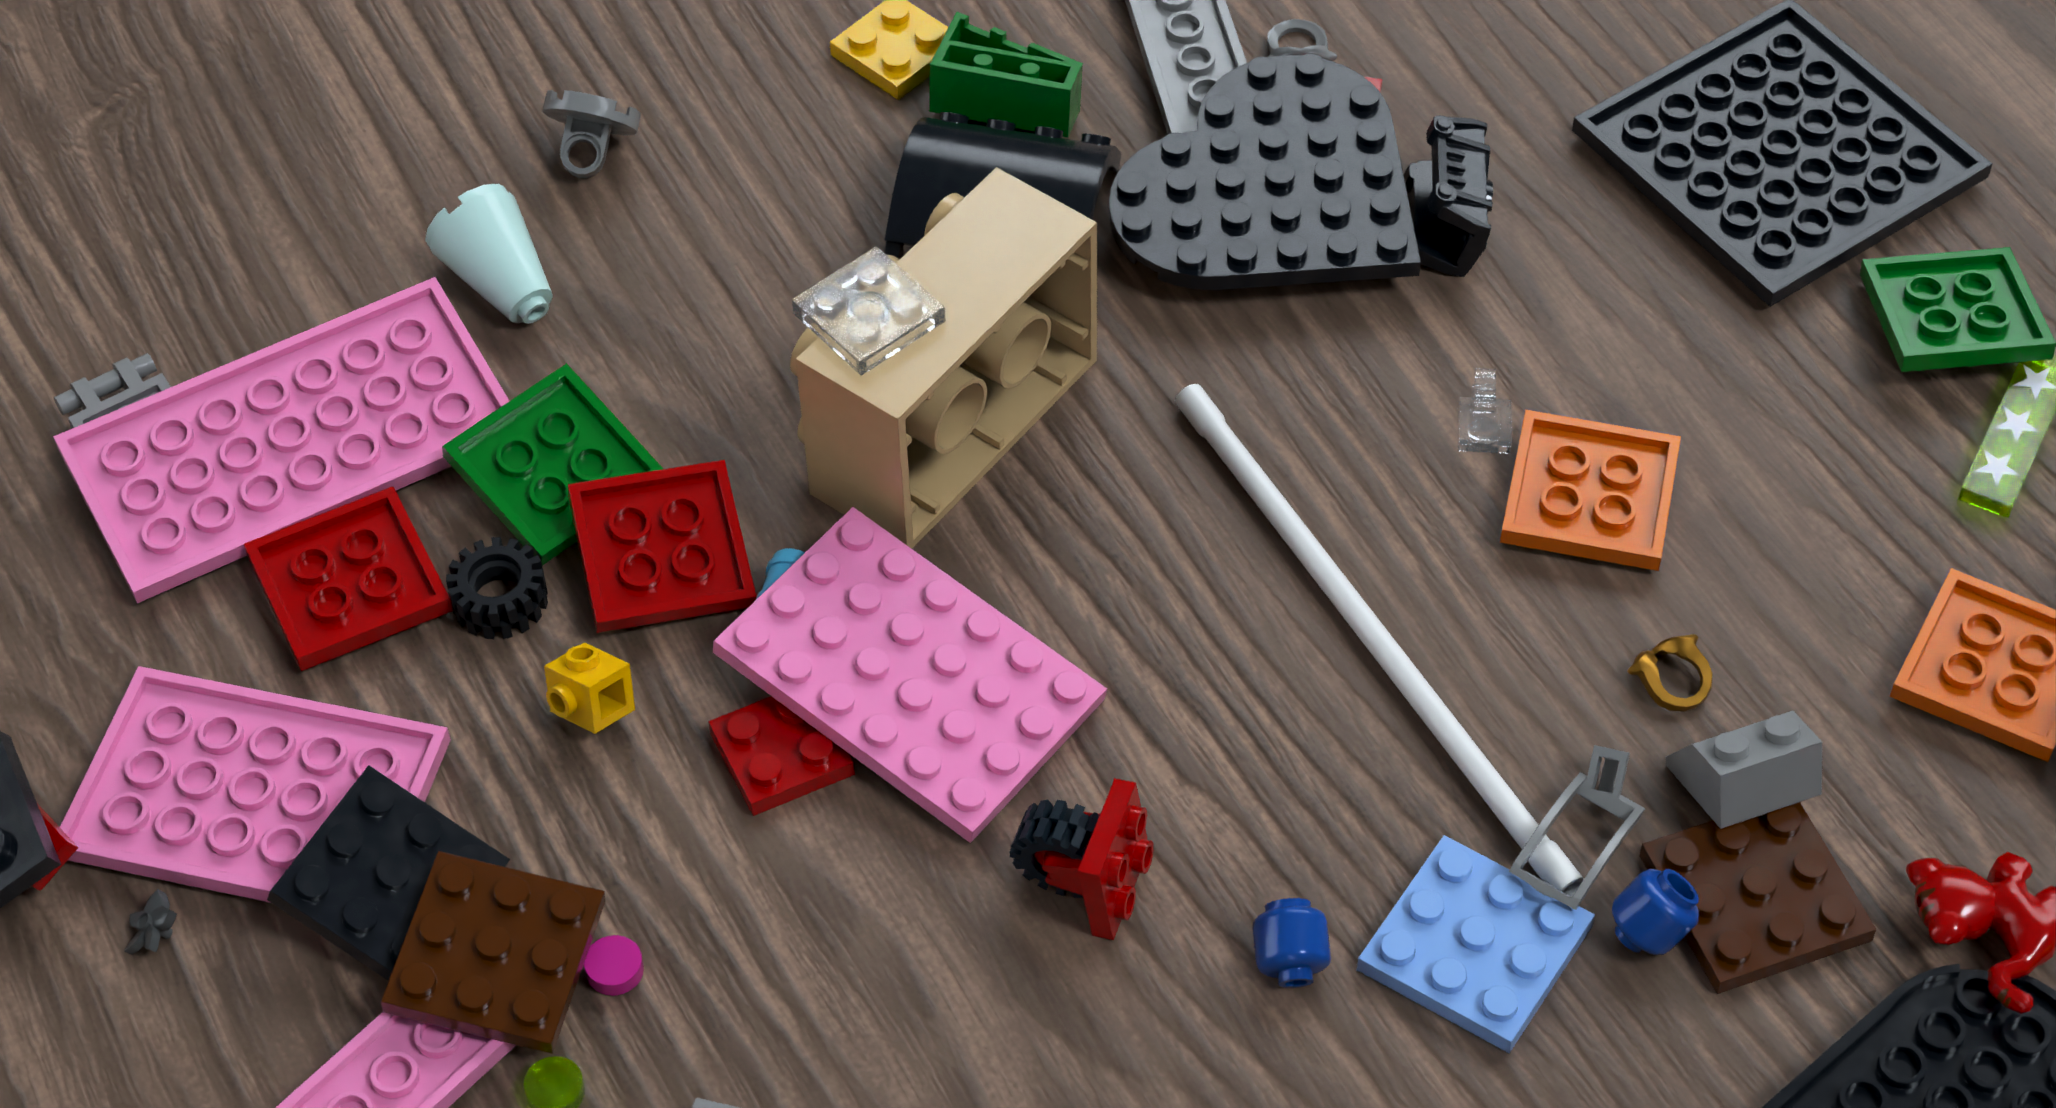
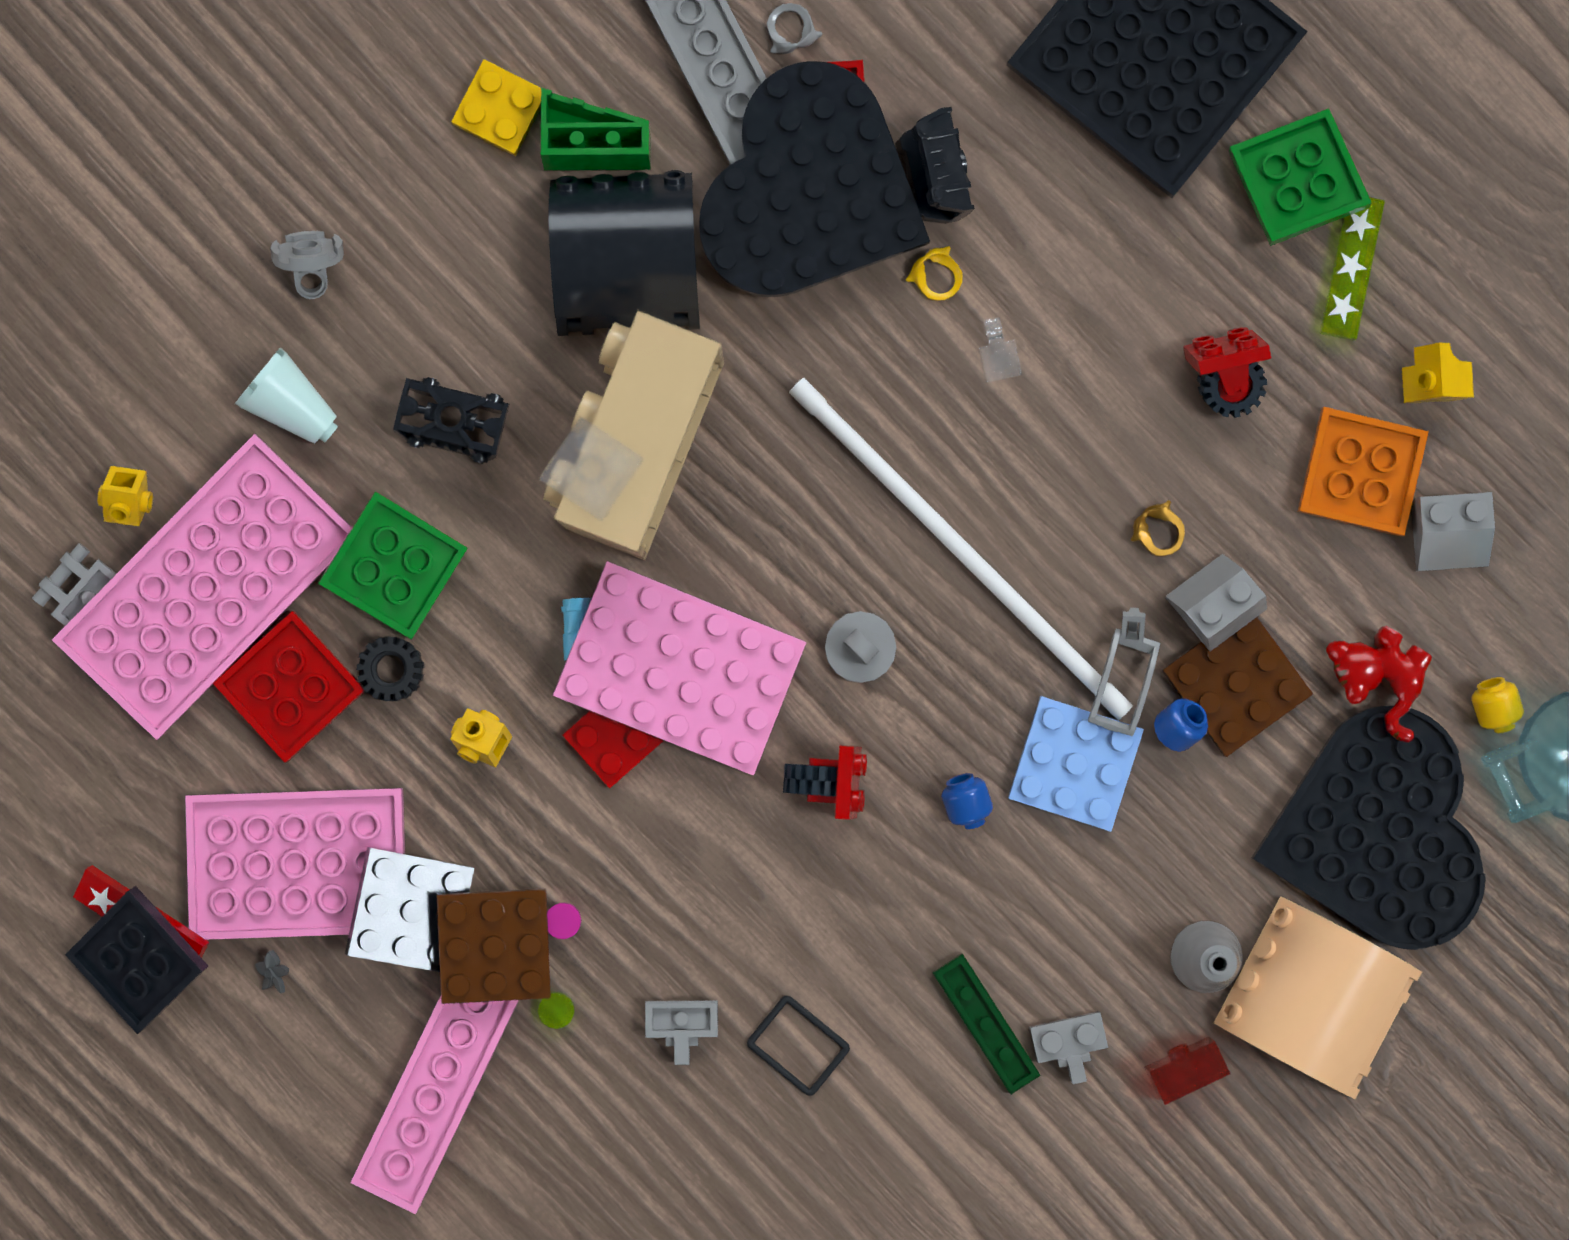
camera: 15 degrees left, 35 degrees up
(233, 313) = (121, 502): none -> yellow brick
(661, 546) = (487, 613): red plate -> none
(687, 327) = (451, 438): none -> black piece
(1185, 717) = (860, 647): none -> light grey tile
(1426, 301) = (918, 273): none -> yellow piece
(1591, 490) = (1081, 397): orange plate -> none
(1817, 490) = (1230, 370): none -> red plate

